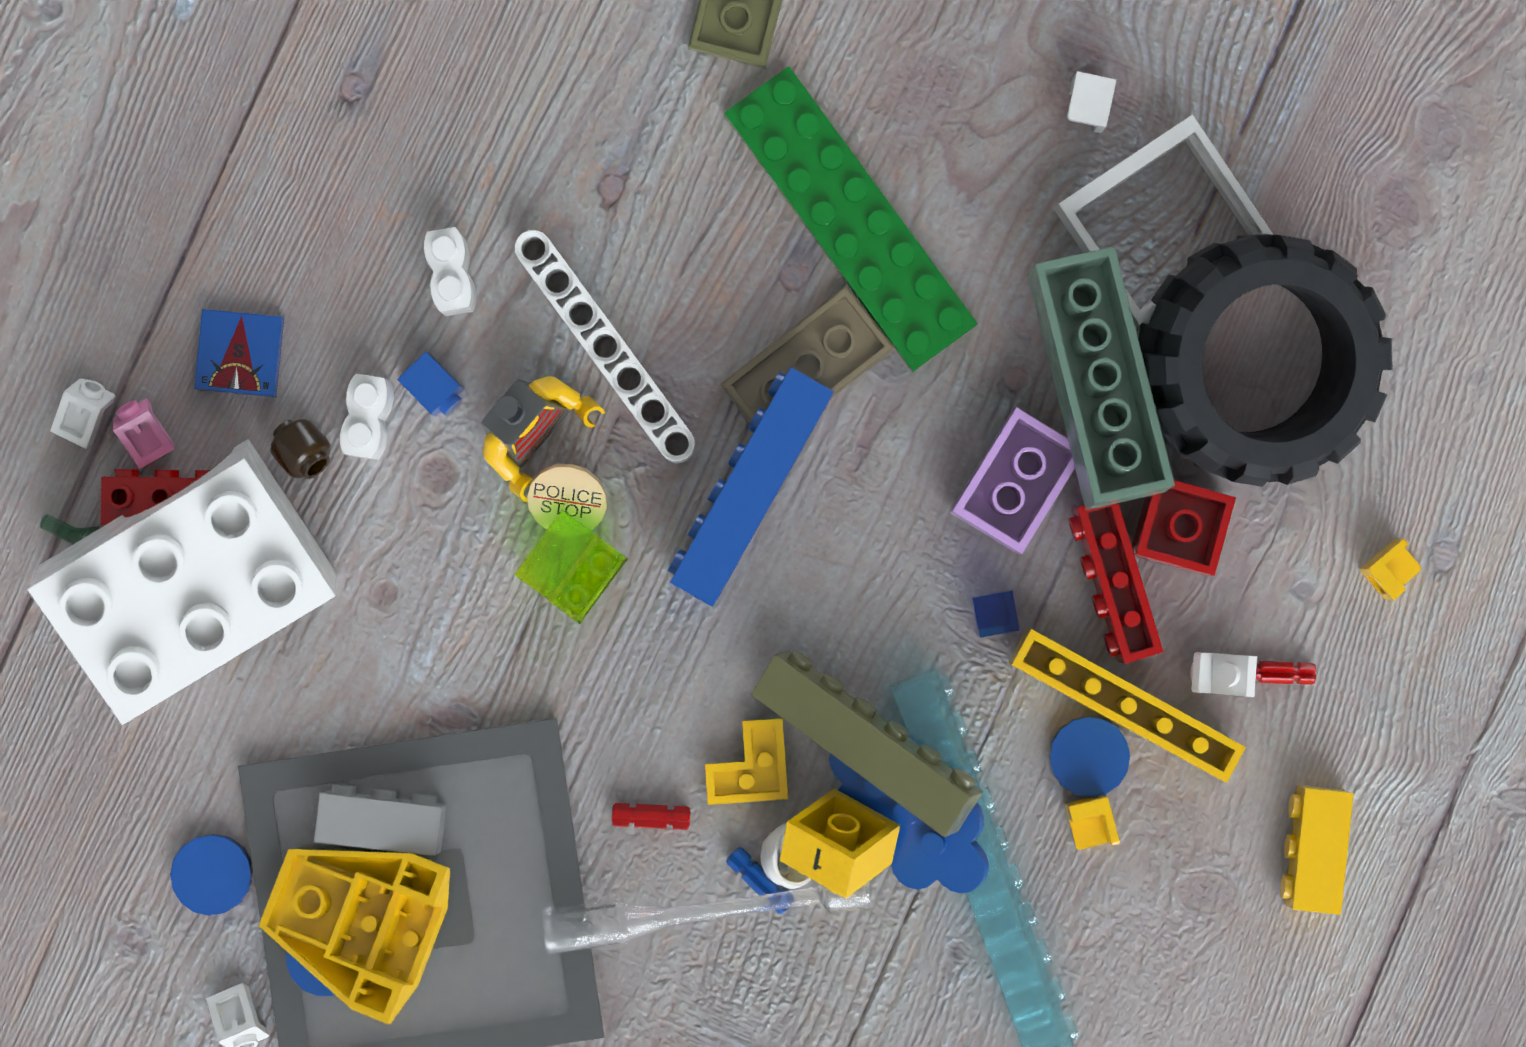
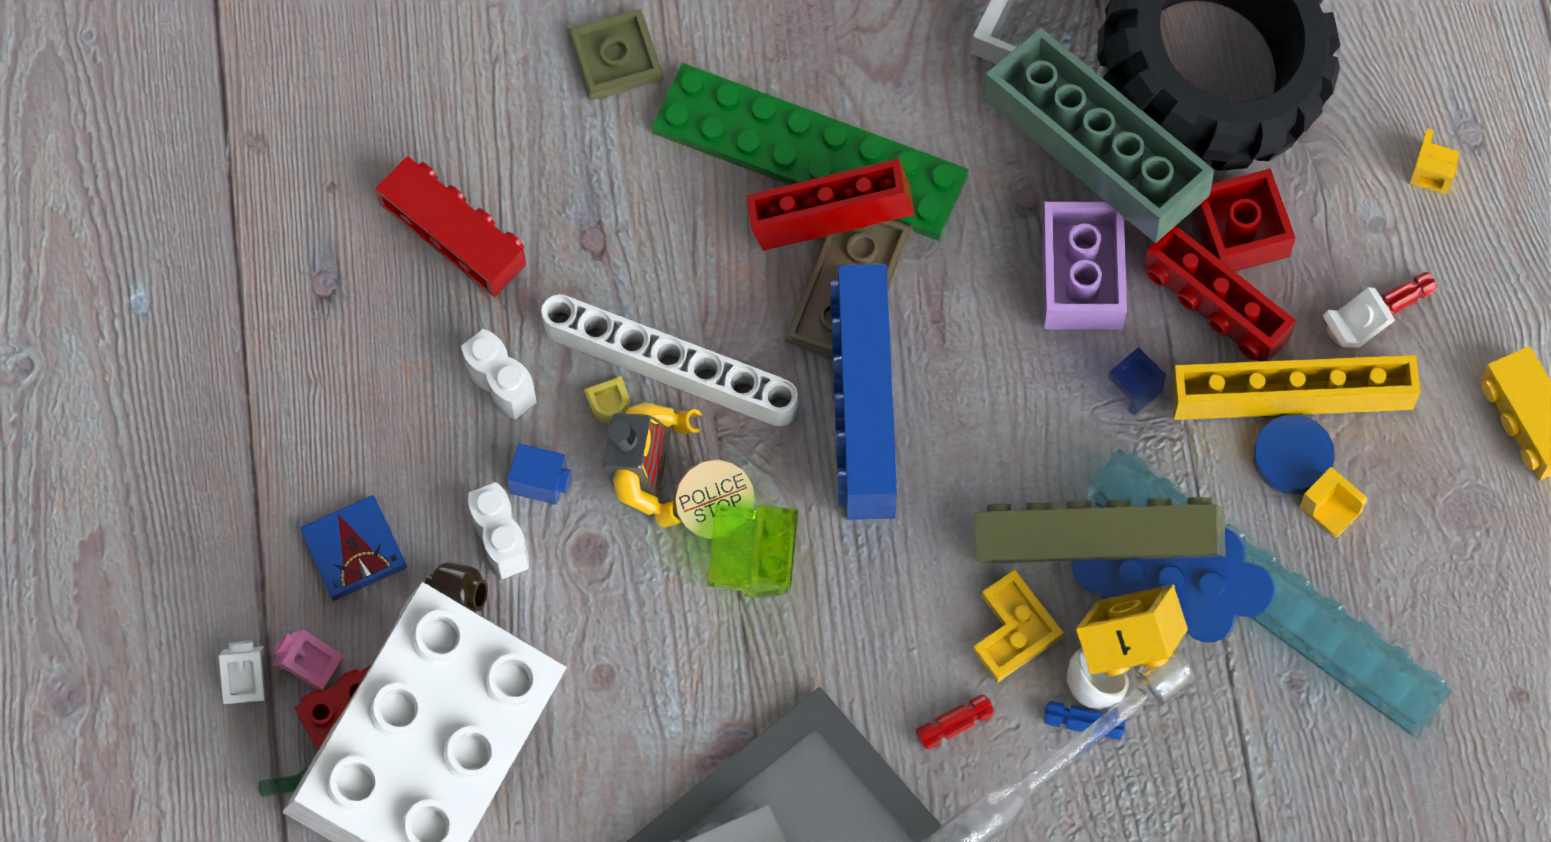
camera: 25 degrees left, 20 degrees down
(488, 104) = (451, 225): none -> red brick
(534, 349) = (608, 399): none -> light yellow tile
(829, 292) = (830, 204): none -> red brick

